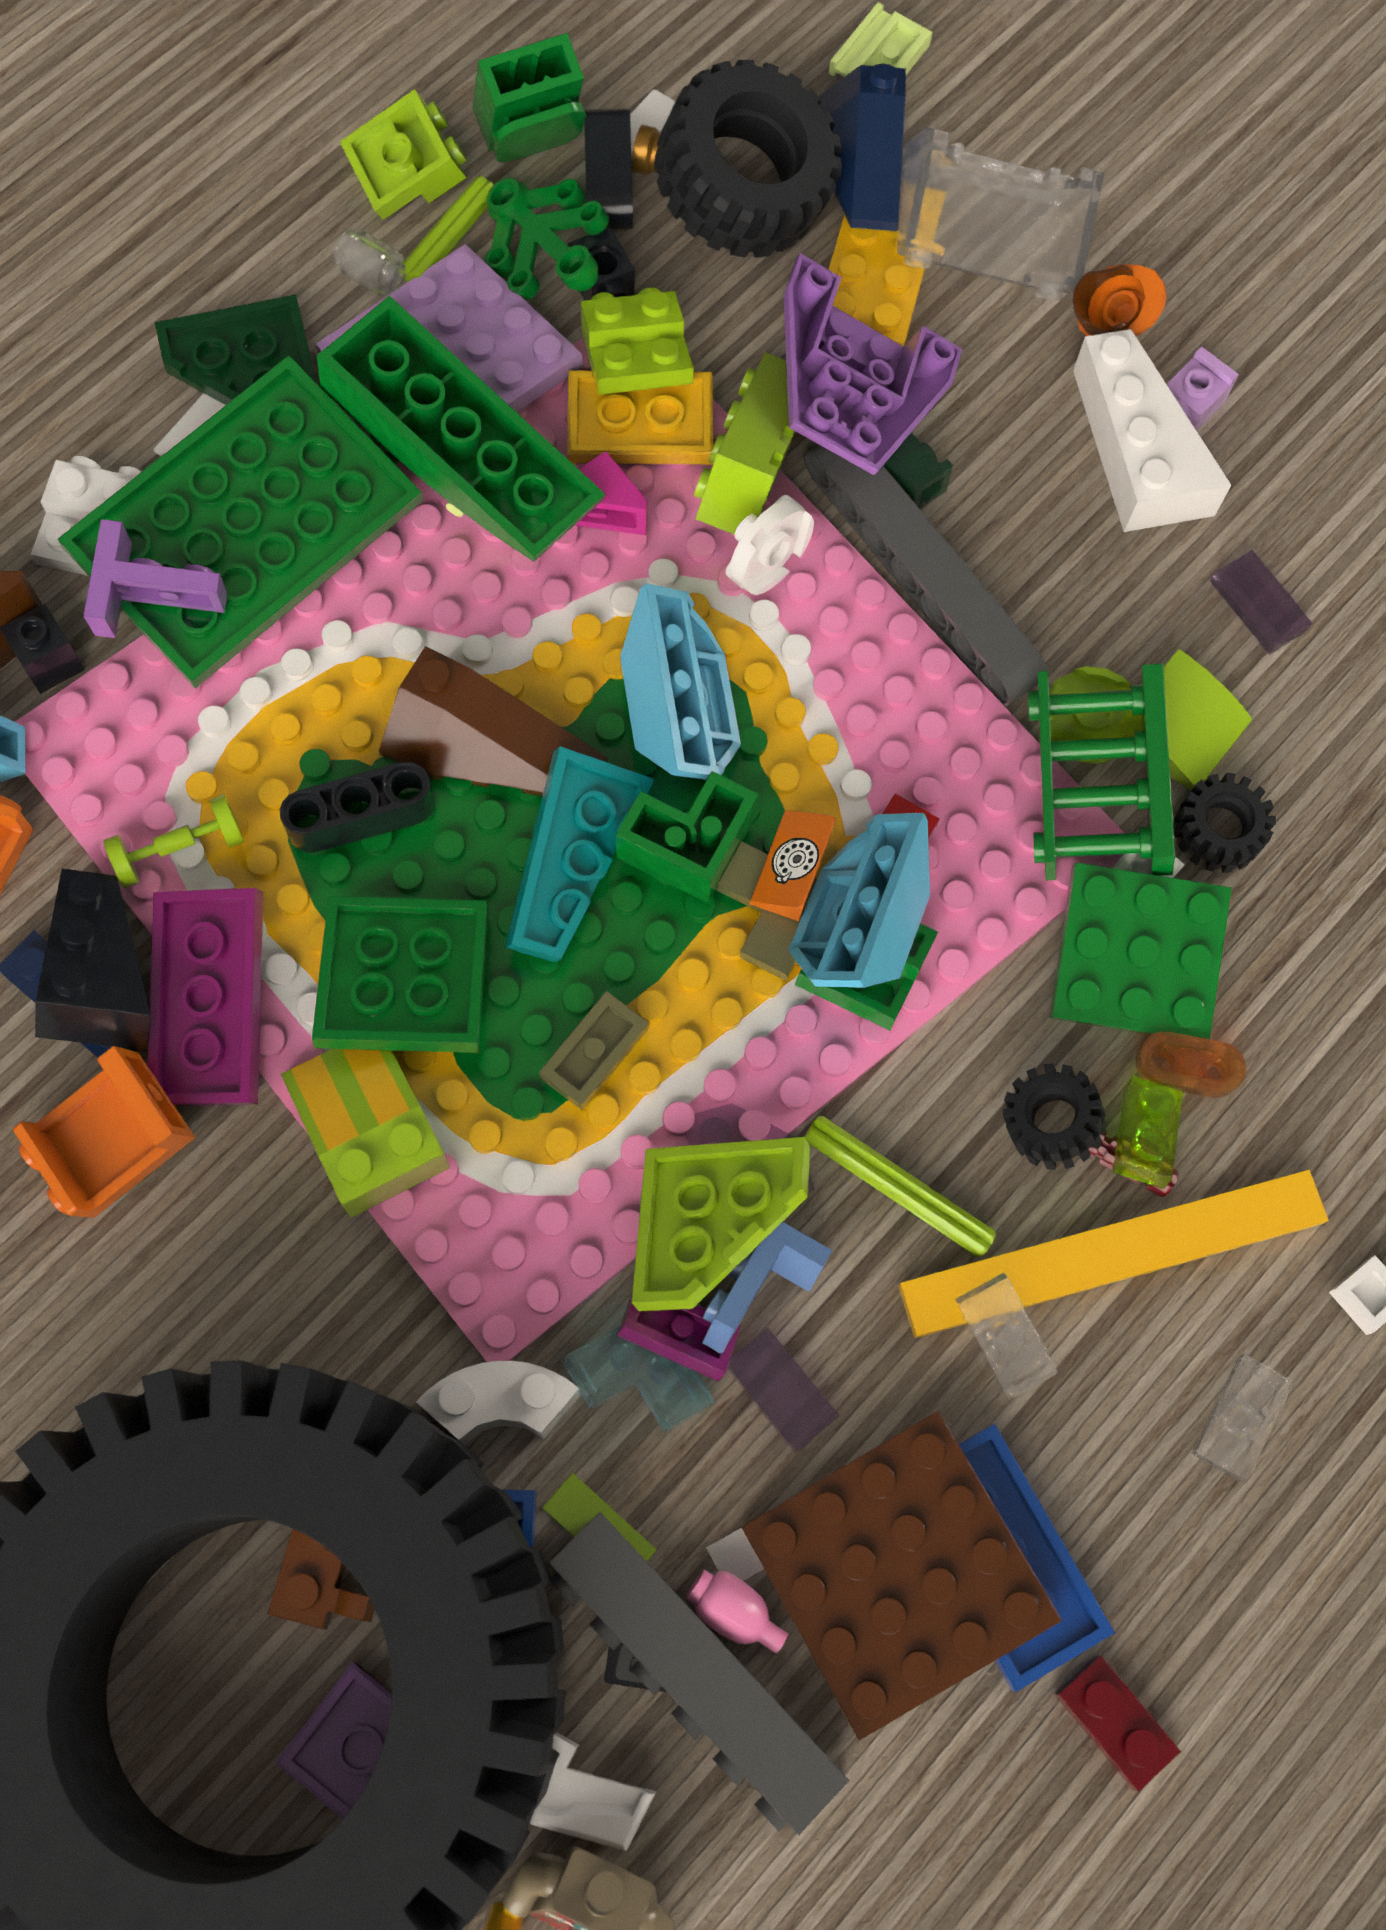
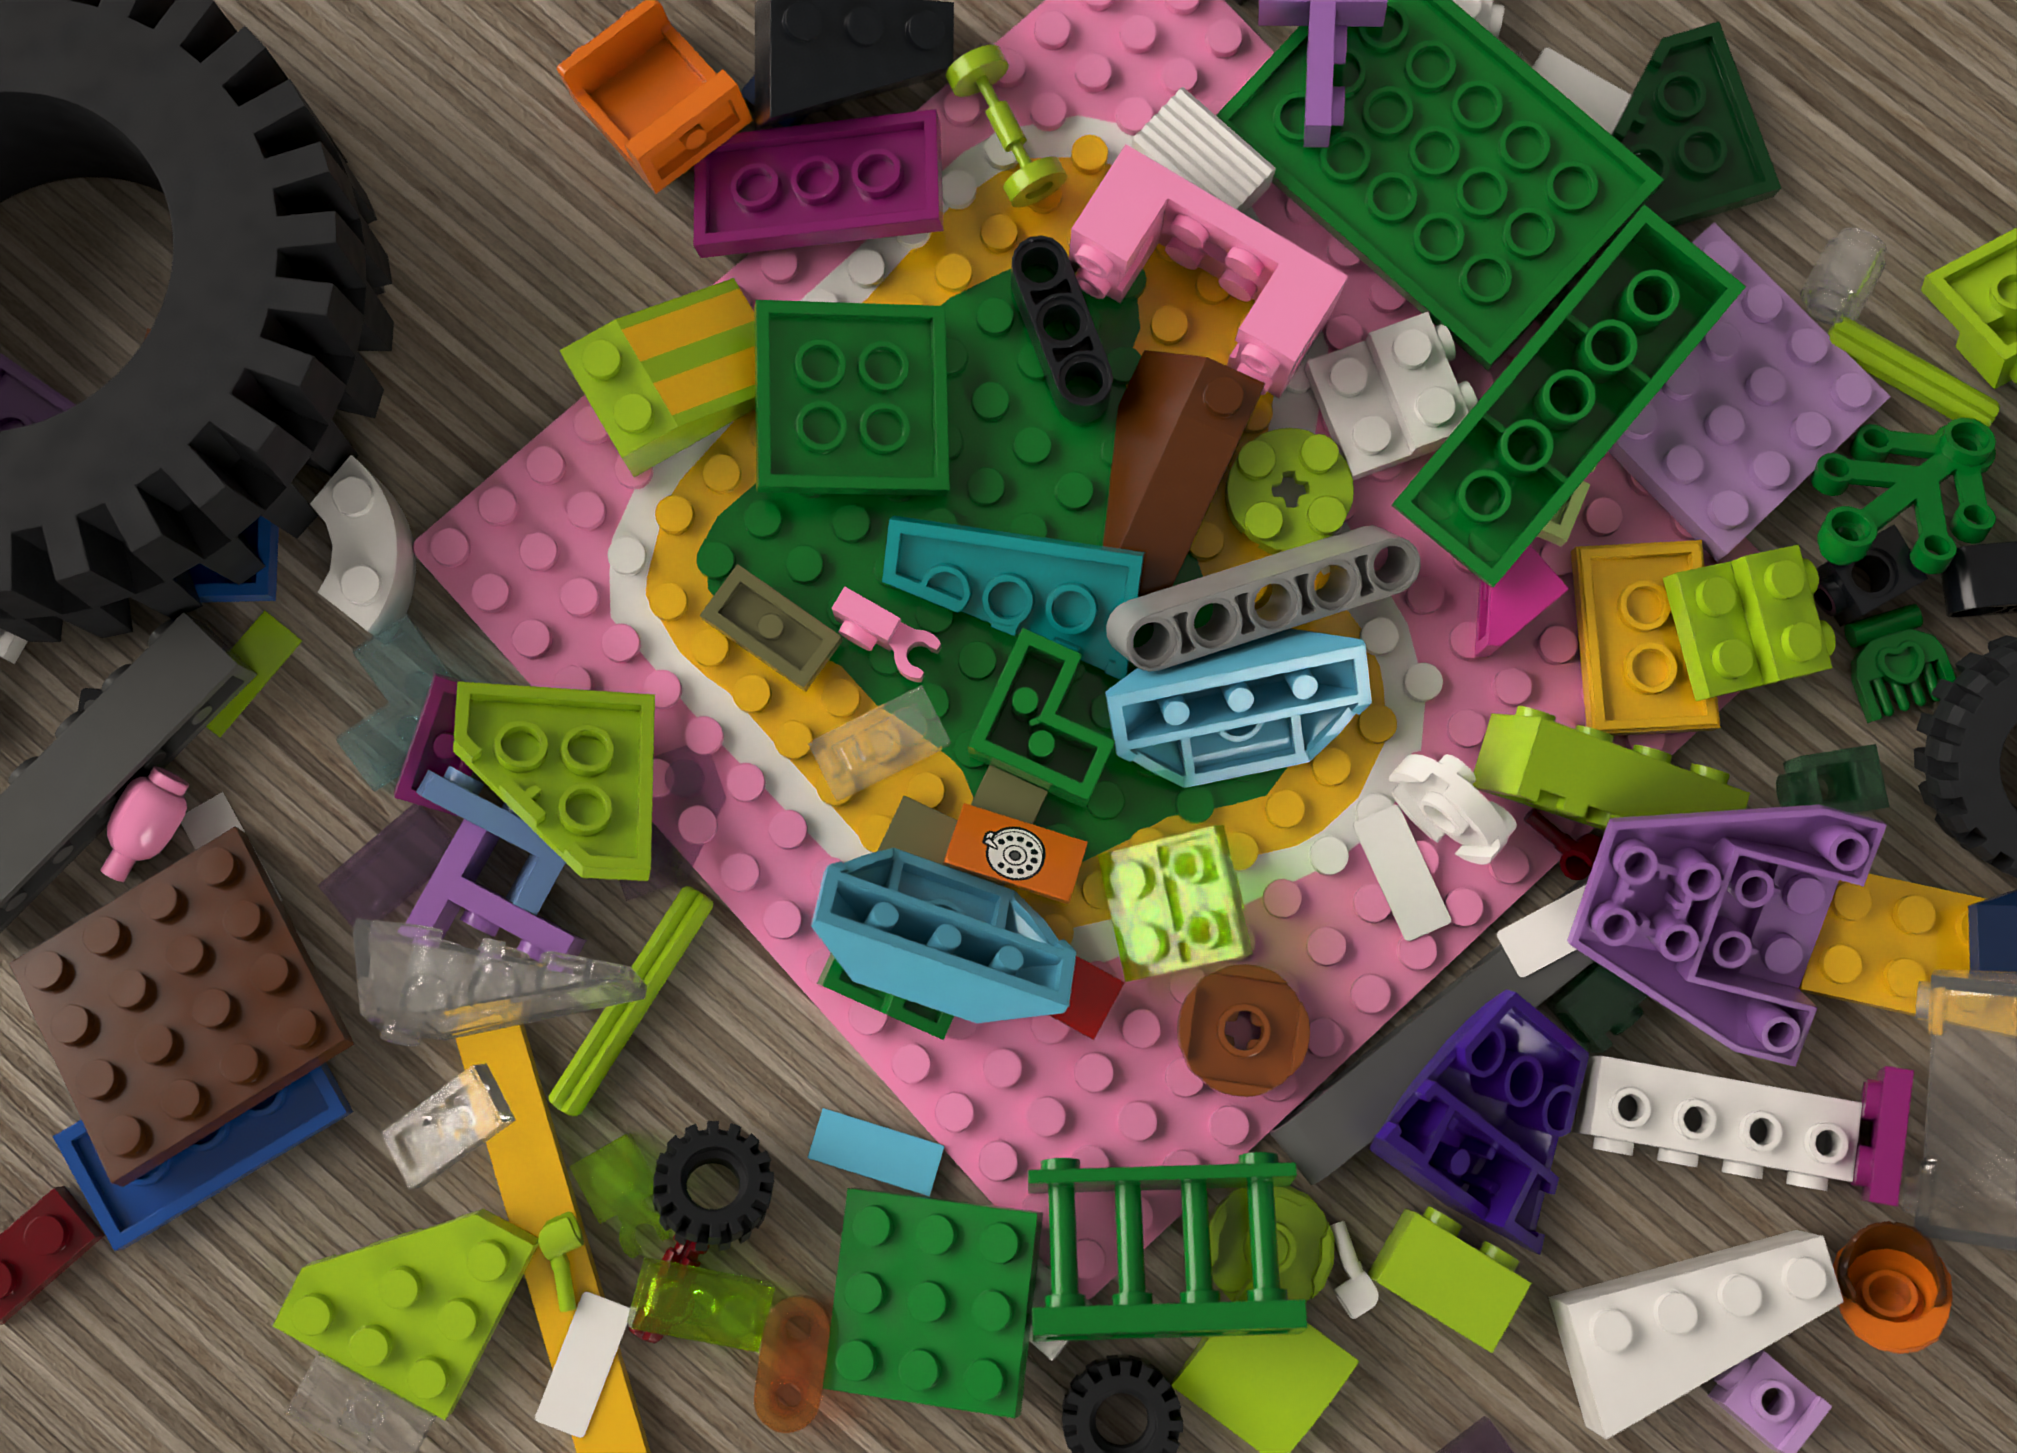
camera: 90 degrees right, 10 degrees up
(228, 693) = (1205, 152): none -> white brick
(352, 625) = (1151, 205): none -> bright pink plate
(436, 570) = (1391, 394): none -> white plate
(514, 624) = (1313, 463): none -> lime plate
(597, 968) = (870, 624): none -> bright pink plate
(598, 667) = (1290, 605): none -> light grey beam
(662, 260) = (1897, 656): none -> green piece
(694, 972) = (879, 743): none -> clear plate
(757, 316) = (1851, 776): none -> clear green brick
(797, 478) = (1577, 855): none -> dark red hand
(811, 597) = (1402, 872): none -> white sticker
(821, 1303) = (455, 887): none -> medium lavender bracket
(836, 748) = (1175, 903): none -> clear neon green plate
(861, 491) = (1541, 935): none -> white sticker
(892, 1333) = (439, 990): none -> clear wedge
(928, 739) = (1272, 1007): none -> dark orange plate
(998, 406) = (1719, 1119): none -> white brick
(1000, 552) = (1489, 1117): none -> dark purple wedge
(1014, 294) = (1887, 1108): none -> magenta plate
(1022, 998) = (876, 1152): none -> medium azure sticker
(1051, 1202) = (617, 1184): none -> clear neon green plate
(1097, 1243) = (555, 1240): none -> lime hand
(1114, 588) = (1450, 1279): none -> lime brick
(1125, 652) = (1359, 1292): none -> white hand
(1152, 1372) = (413, 1305): none -> lime plate
(1197, 1230) = (583, 1364): none -> white sticker

